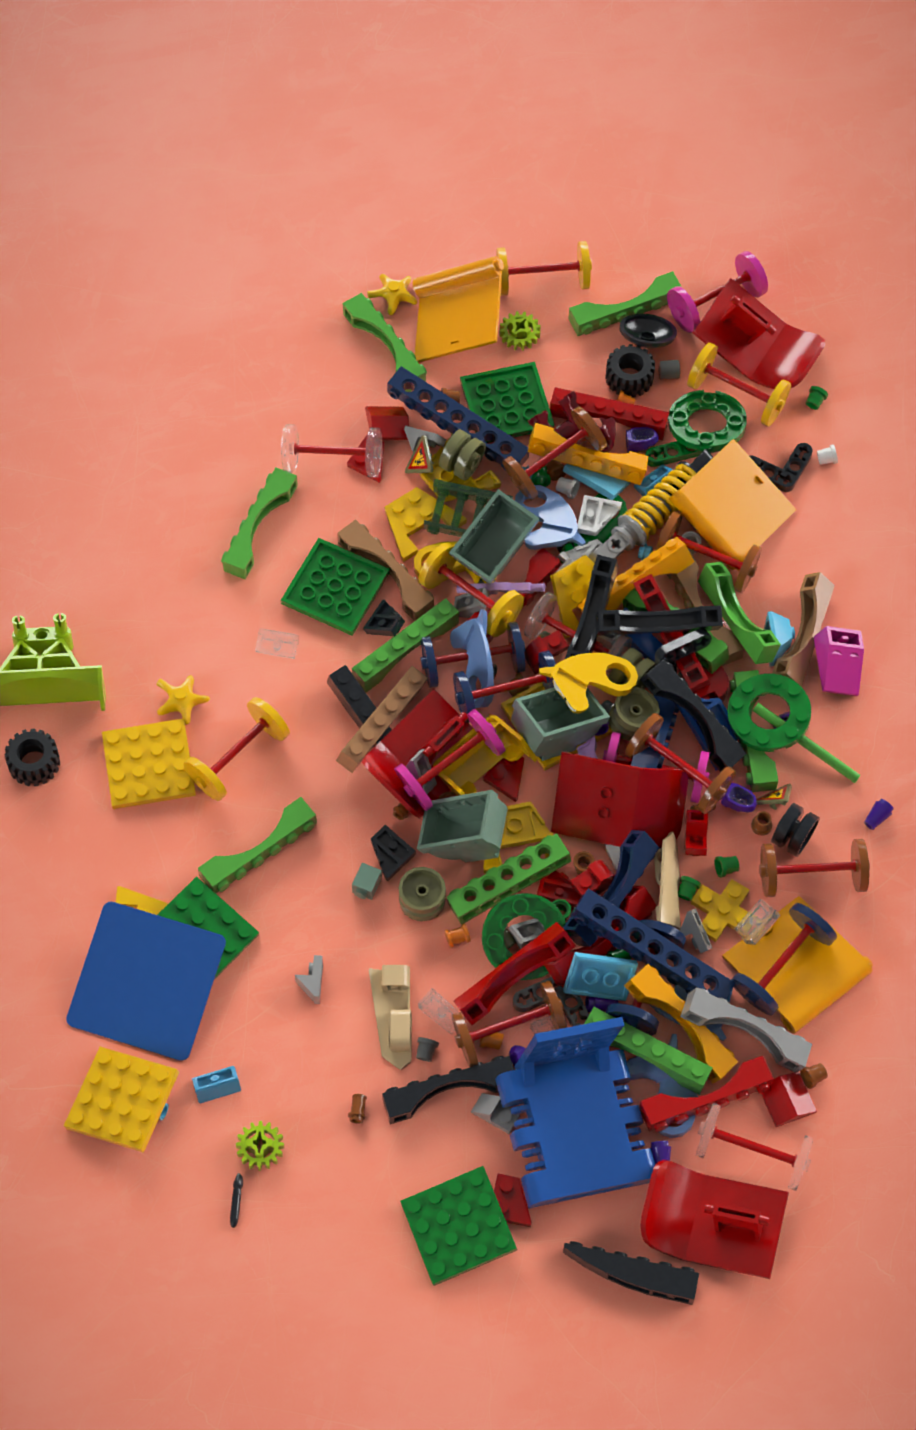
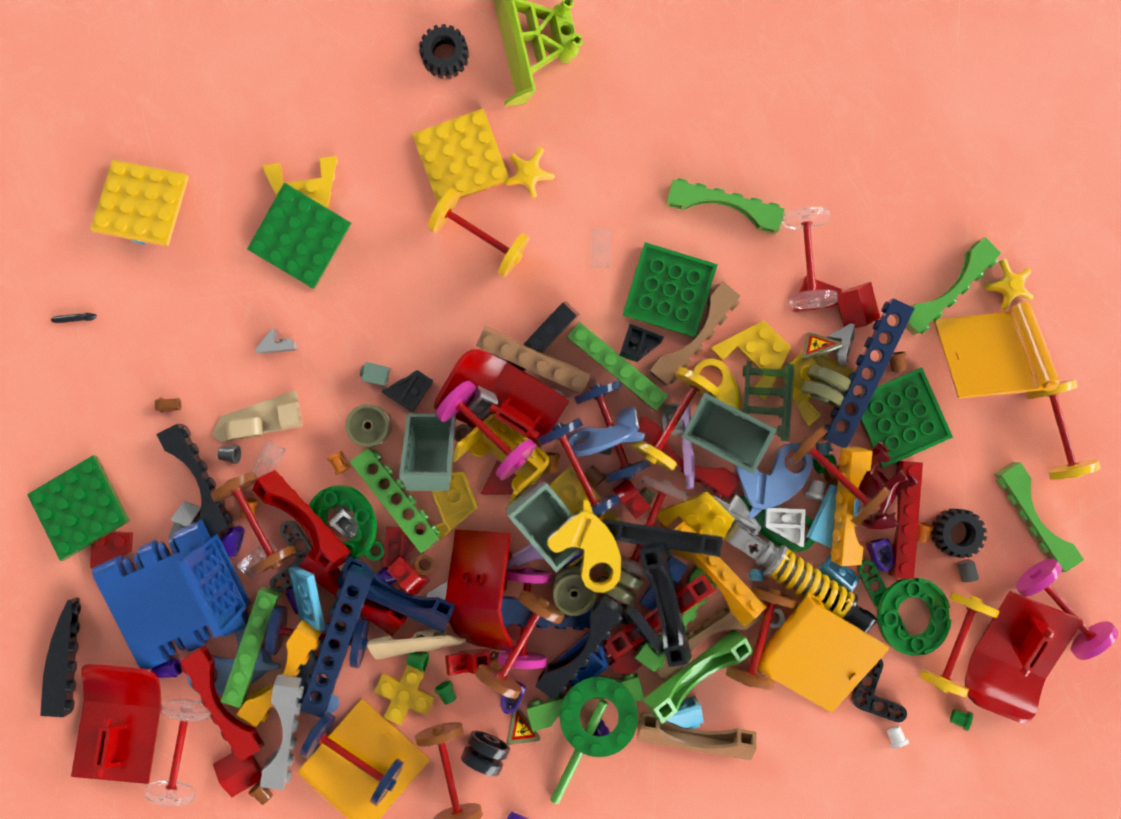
camera: 75 degrees right, 25 degrees up
(146, 980) = (247, 200): blue piece -> none
(216, 1084) = (172, 280): dark azure slope -> none
(223, 870) = (364, 243): bright green arch -> none
(269, 1145) = (115, 321): lime gear -> none
(519, 330) = (994, 412): lime gear -> none
(648, 330) = (1008, 544): black dish -> none
(693, 924) = (375, 673): light grey slope -> none
(757, 922) = (392, 728): clear slope -> none
(762, 829) = (494, 712): dark orange piece -> none
(839, 659) = (668, 774): dark pink slope -> none

